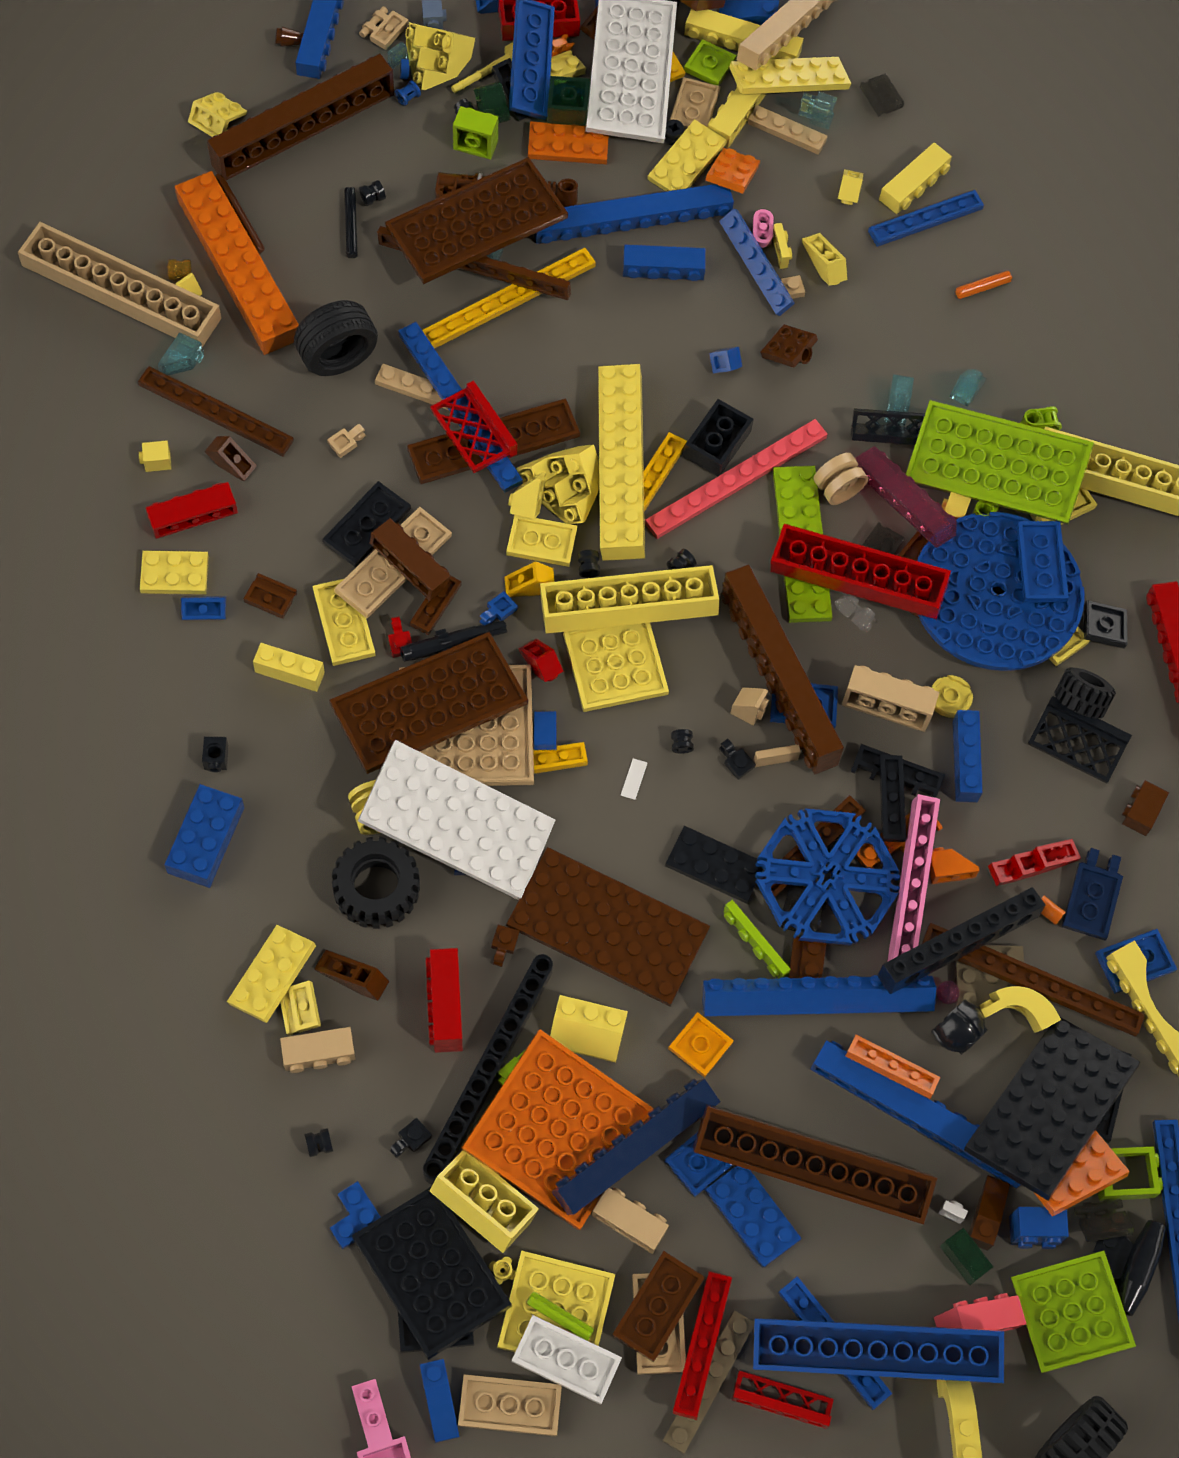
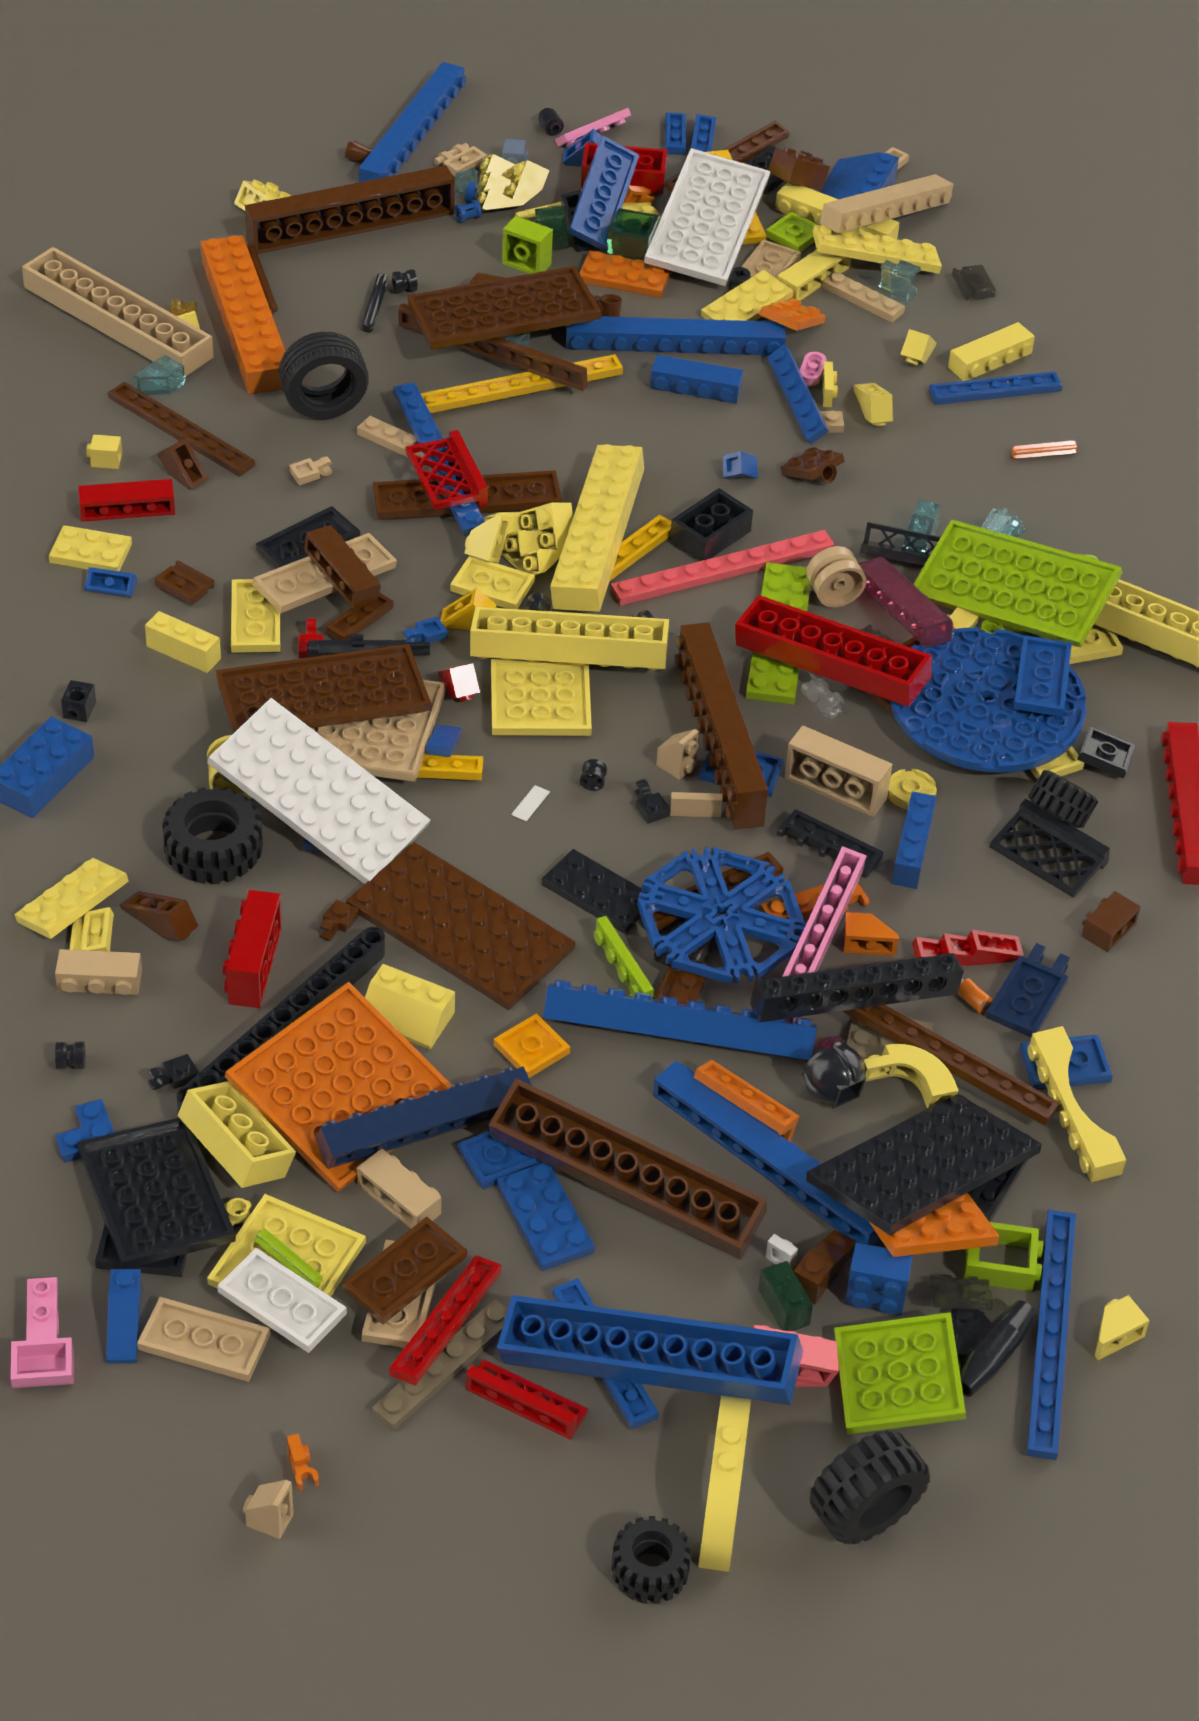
camera: 15 degrees right, 20 degrees down
(892, 798) = (815, 858): black plate -> none

